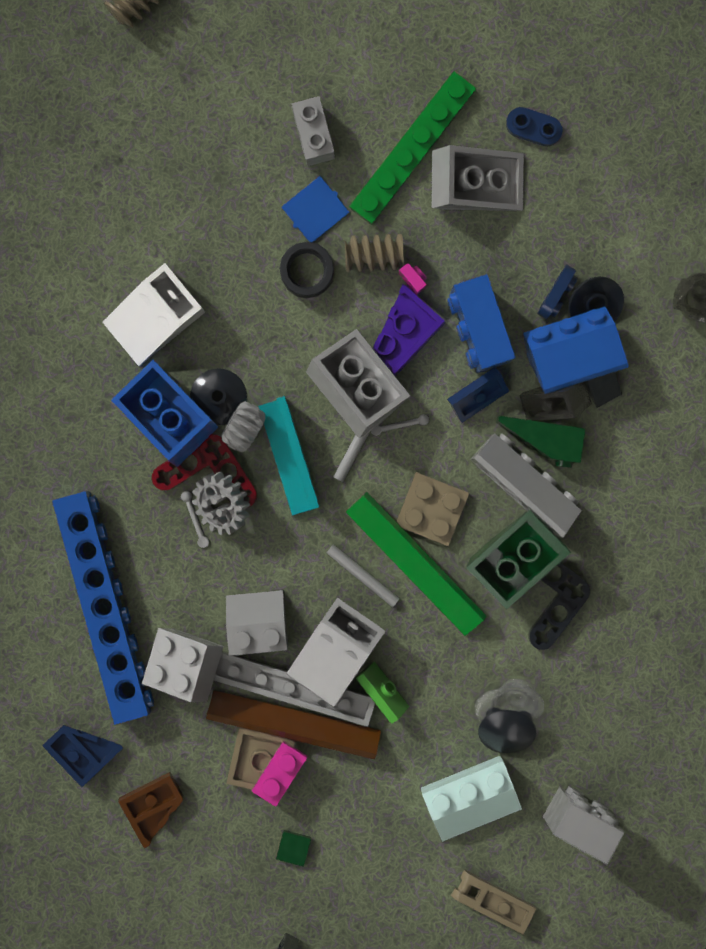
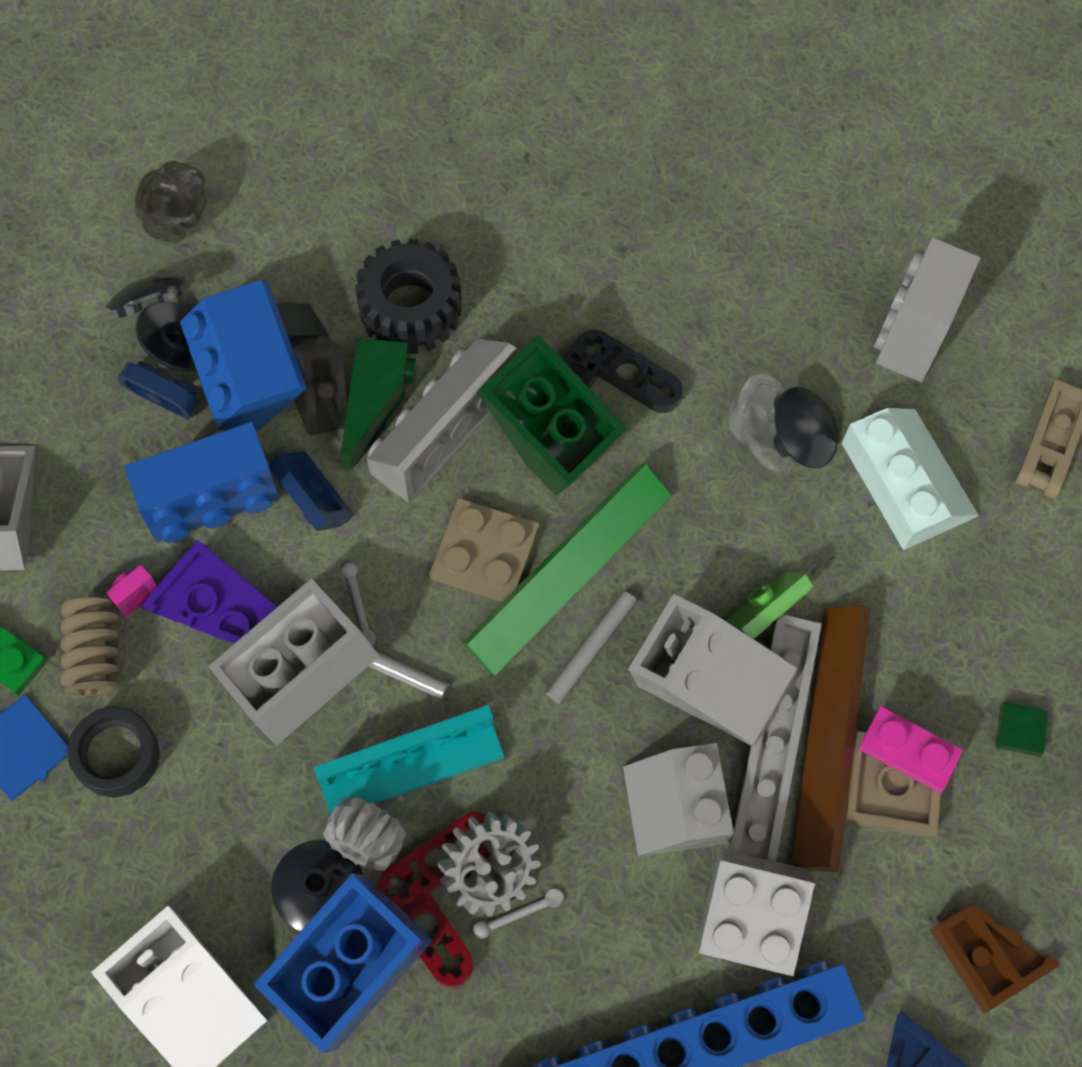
camera: 95 degrees left, 20 degrees down
(628, 282) = (129, 299): none -> black dish
(644, 464) = (409, 266): none -> black tyre

